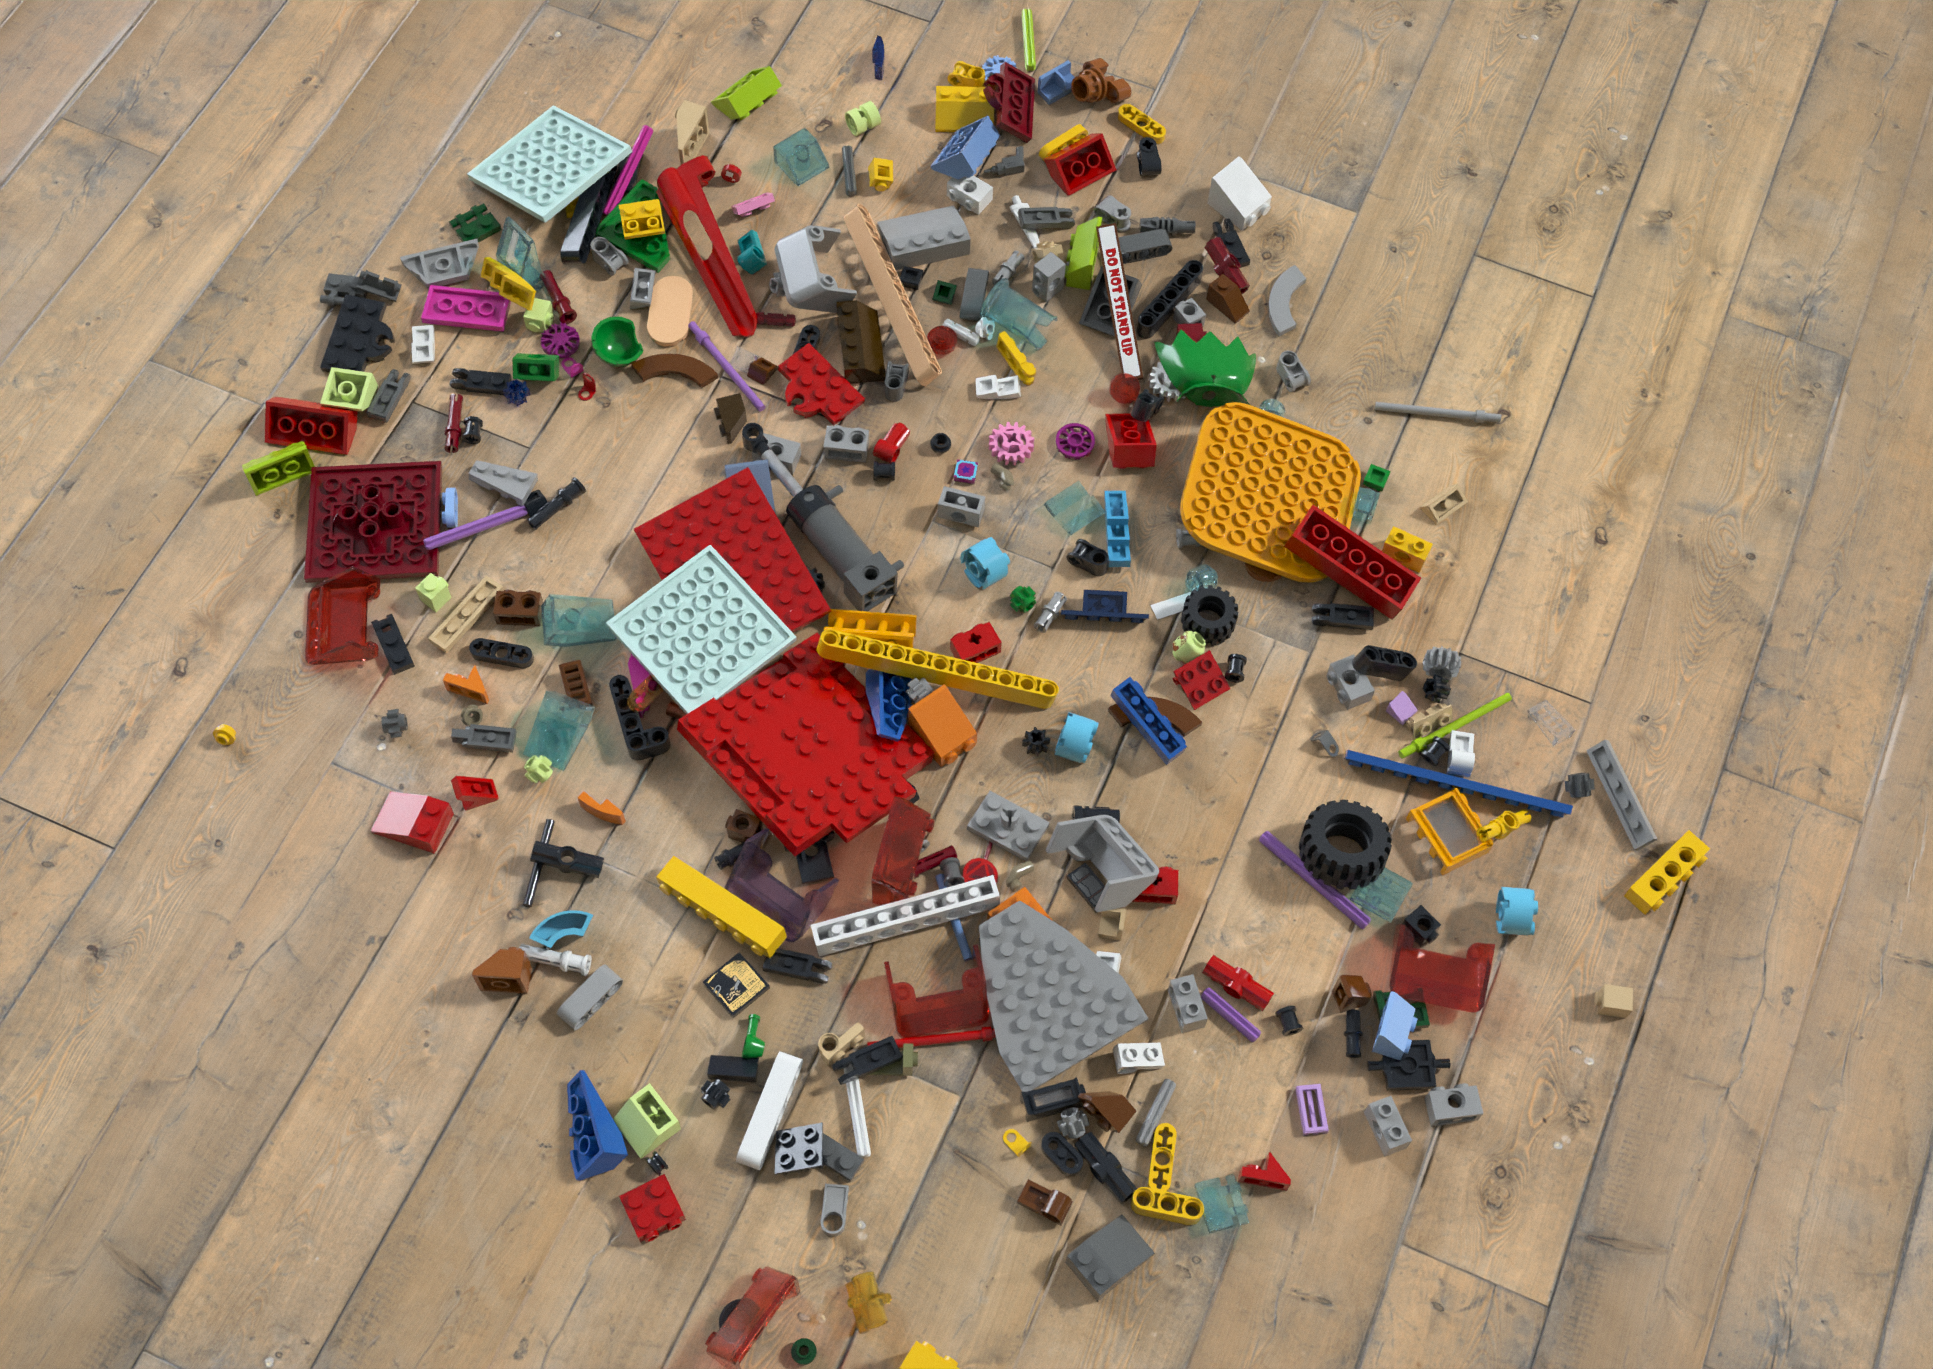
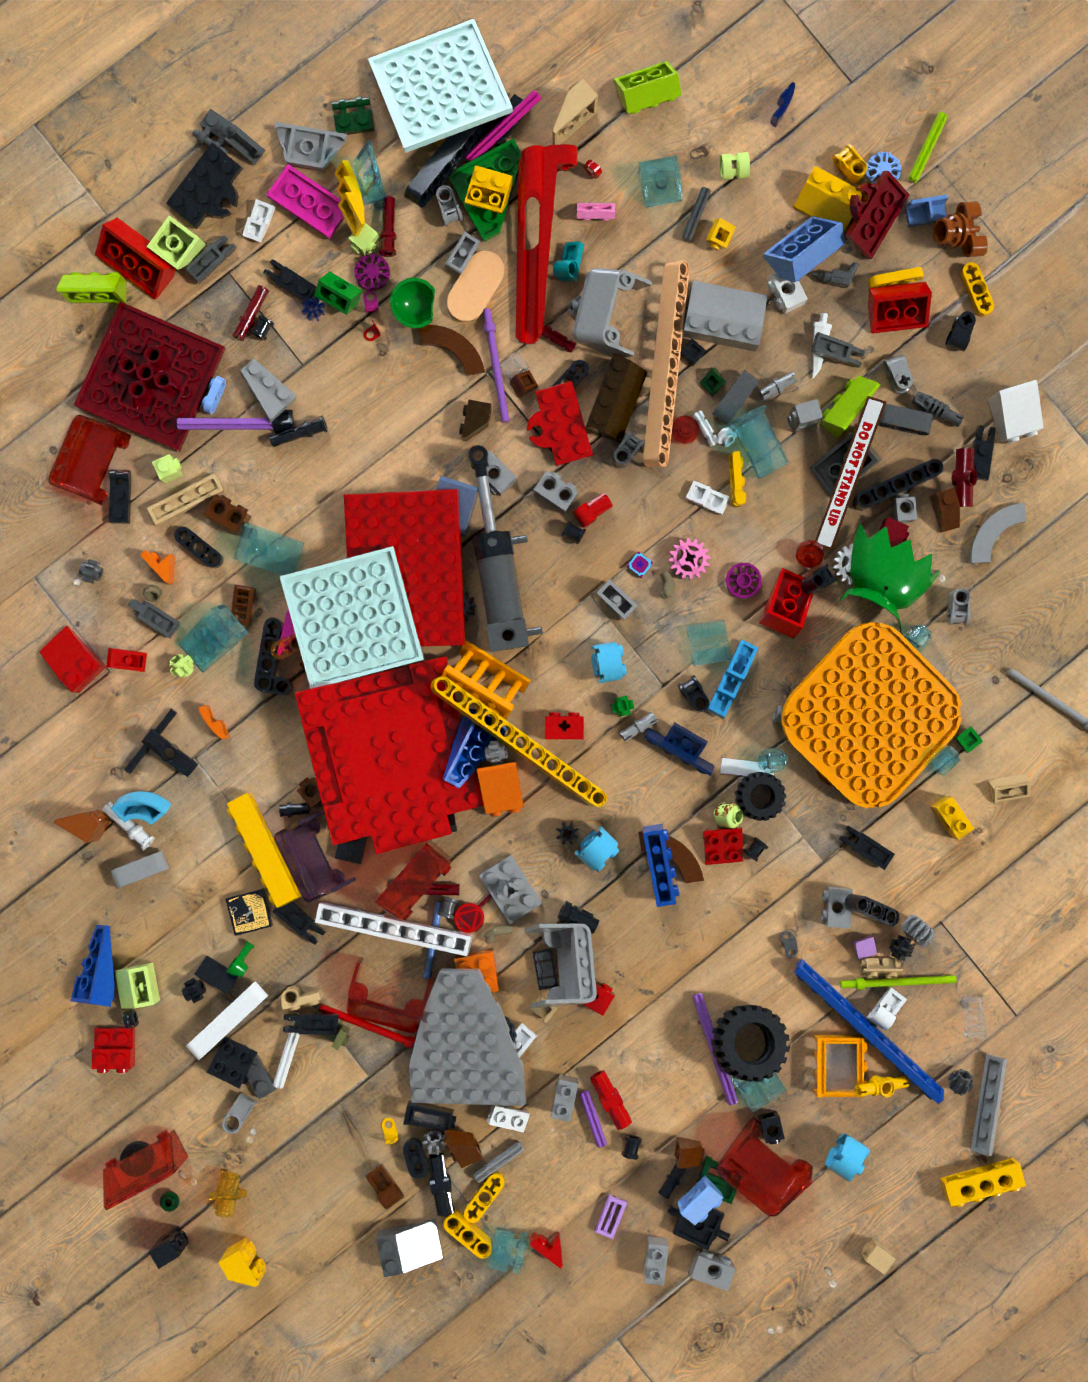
camera: 30 degrees right, 25 degrees up
(940, 438) = (637, 524): black plate -> none
(1044, 248) = (817, 387): tan plate -> none
(1352, 562) = (899, 812): red brick -> none
(1428, 754) = (868, 997): black bush -> none

